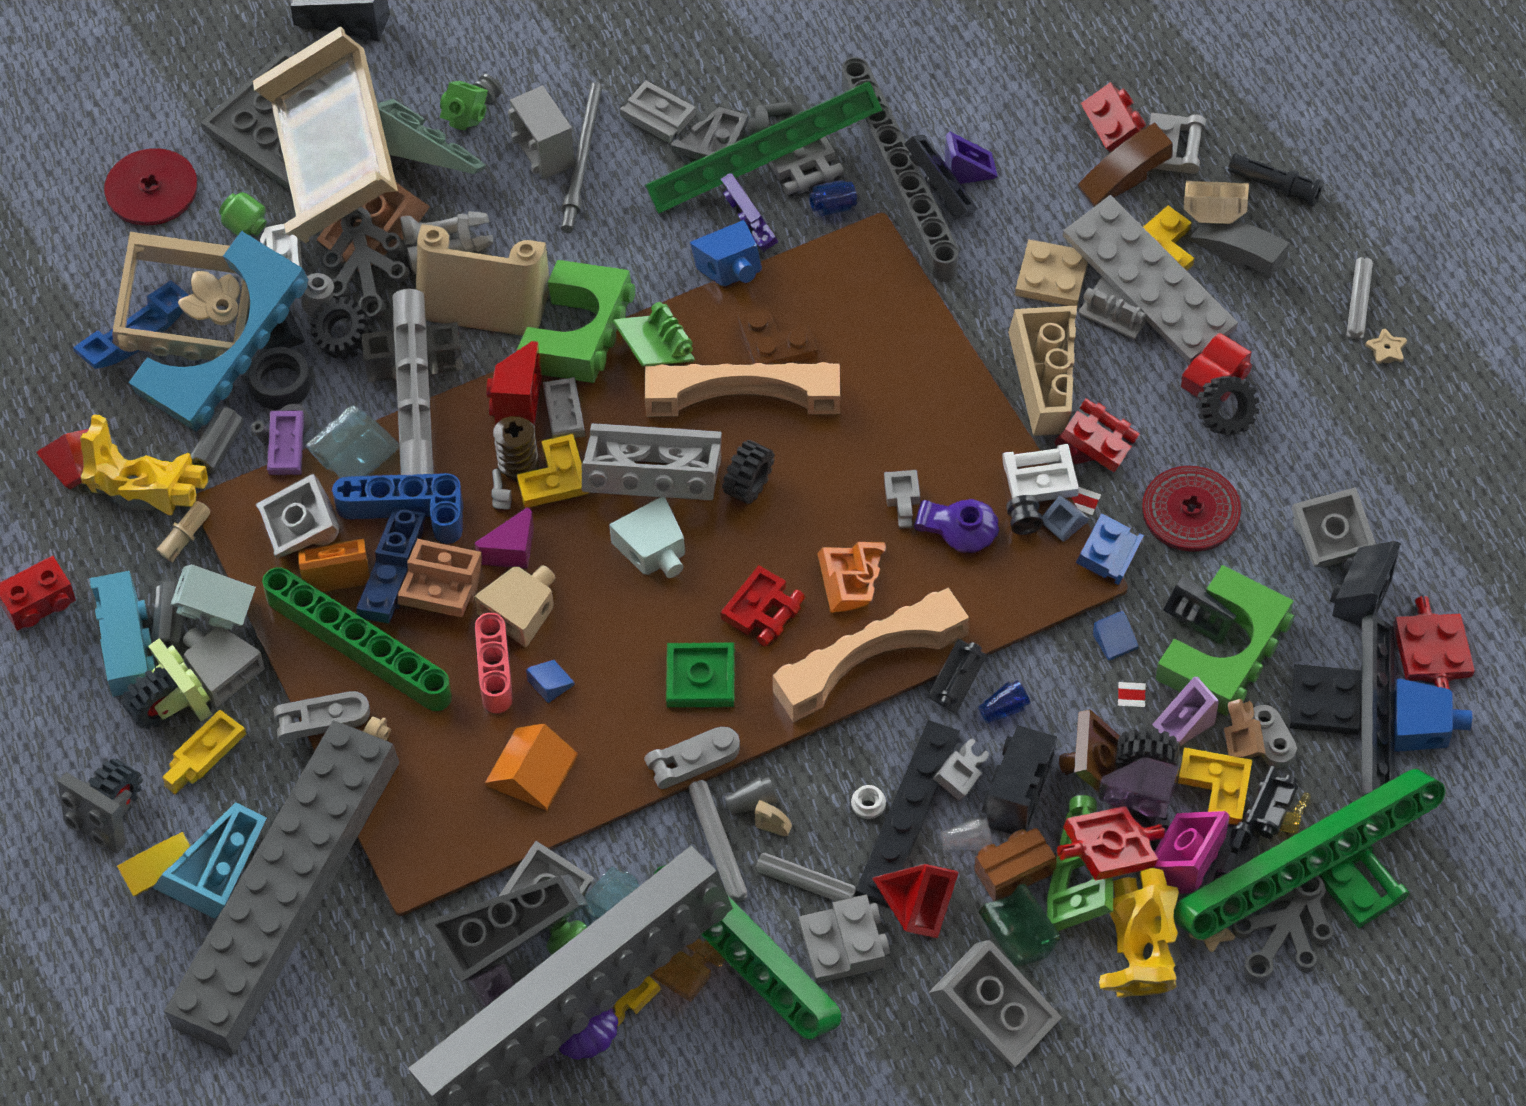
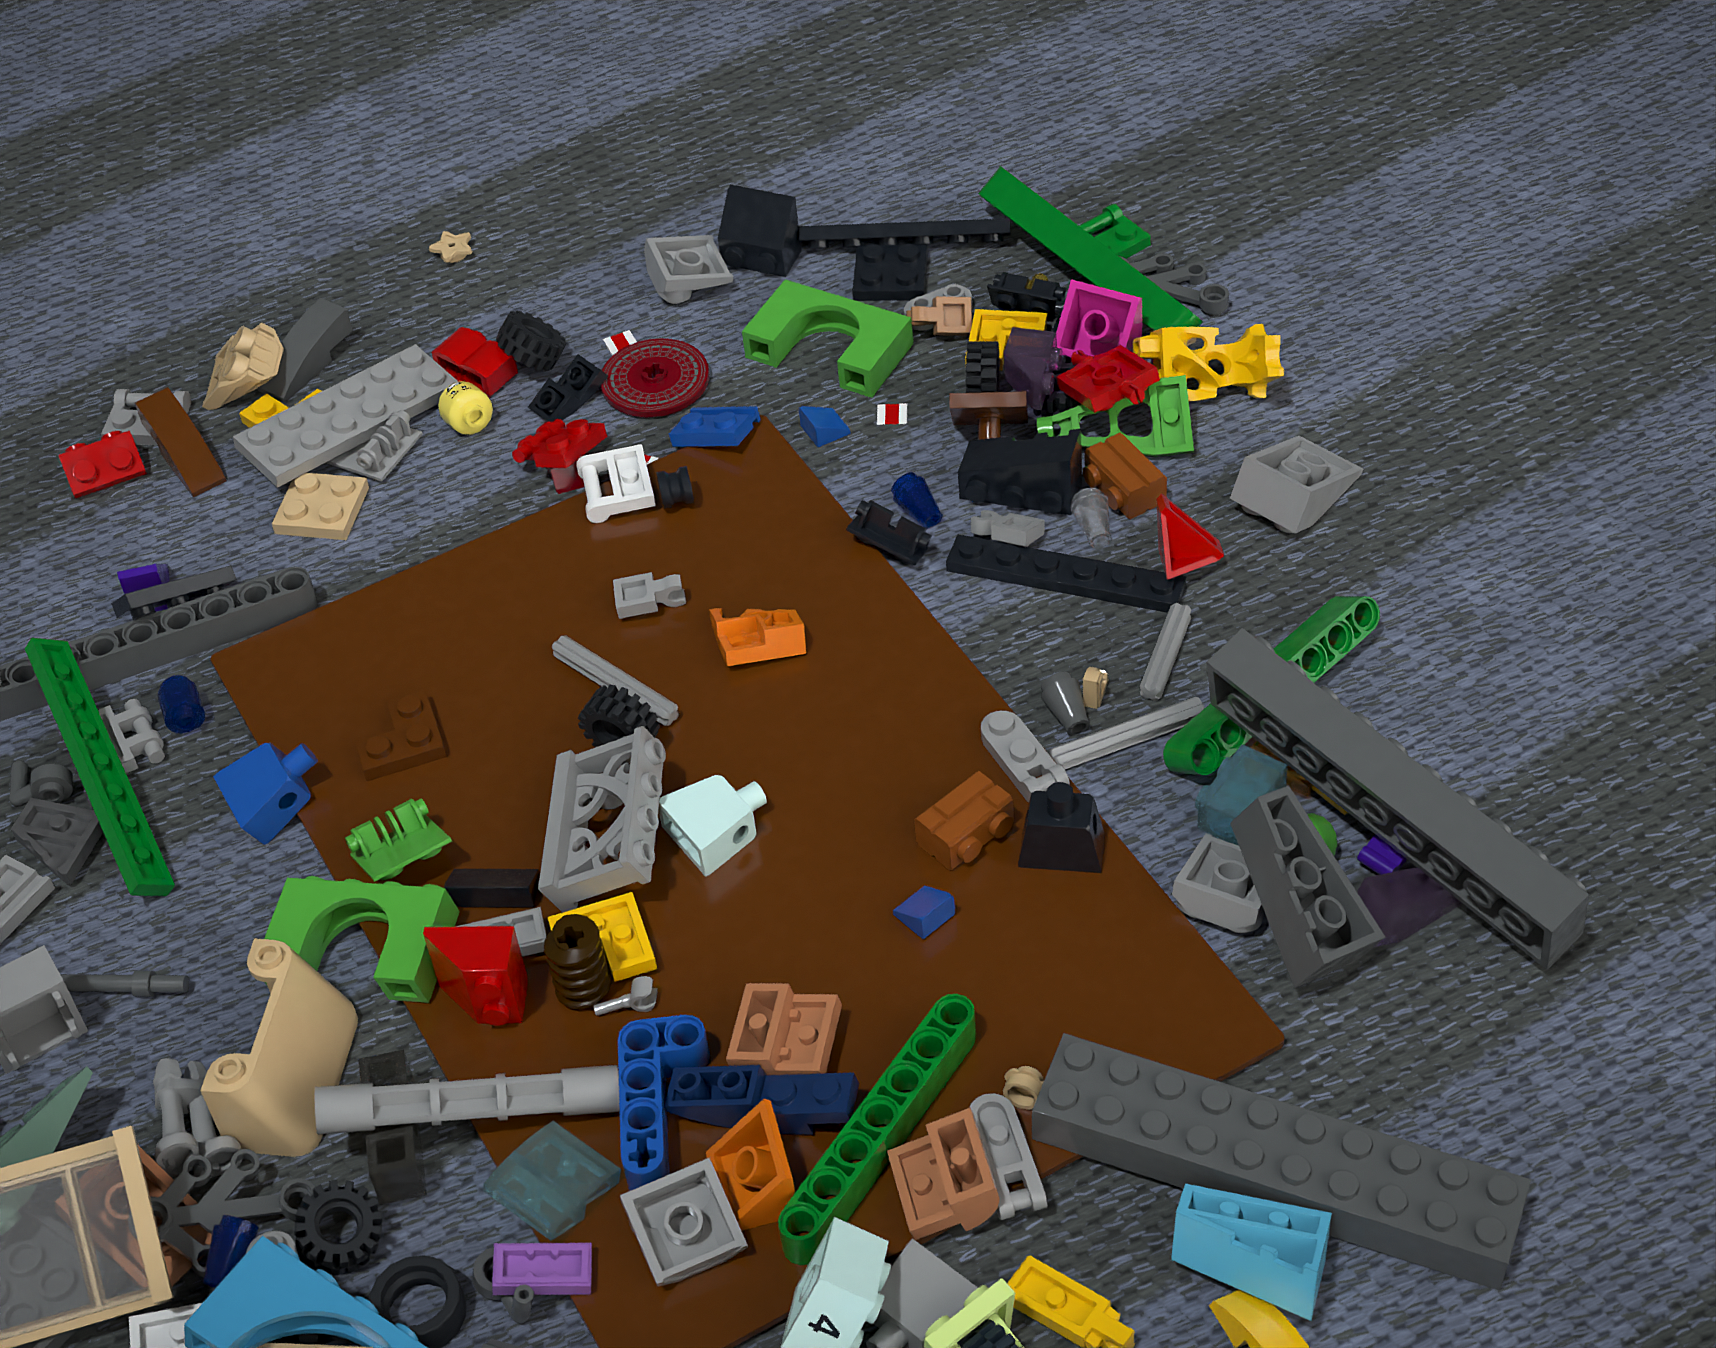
camera: 90 degrees left, 10 degrees down
(304, 672) = (945, 1177): none -> nougat brick
(335, 266) = (227, 1247): none -> clear blue cone
(498, 675) = (887, 966): coral beam -> none
(509, 543) = (717, 965): magenta slope -> none
(520, 600) = (815, 946): tan torso -> none
(532, 766) = (1053, 917): orange slope -> none
(599, 761) = (1062, 831): none -> black torso
(617, 398) = (493, 887): none -> black slope
(624, 707) = (965, 821): none -> dark orange brick
(677, 387) = (479, 824): light nougat arch -> none
(700, 675) = (904, 763): green tile -> none
(736, 196) = (190, 783): hinge -> none
(755, 598) = (798, 715): red plate -> none
(813, 477) = (607, 674): none -> light grey axle
(844, 939) = (1239, 600): light grey plate -> none
(870, 793) = (1057, 604): white plate -> none
(928, 624) = (912, 648): light nougat arch -> none
(963, 525) = (685, 540): dark purple animal -> none
(1020, 927) = (1199, 464): clear green bracket -> none
(1045, 362) = (468, 487): tan wedge -> none
(1064, 518) = (673, 457): sand blue slope -> none
(1154, 364) = (463, 404): none -> light yellow head
(1174, 442) = (570, 392): none -> black slope
(1185, 613) = (787, 359): black slope -> none
(1189, 712) = (921, 355): lavender slope -> none
(1248, 485) = (619, 341): none -> sticker
(1288, 182) = (222, 322): black pin -> none
(1359, 298) = (385, 268): light grey axle -> none
(1425, 716) = (910, 196): blue torso -> none
(1433, 646) = (831, 200): red plate -> none

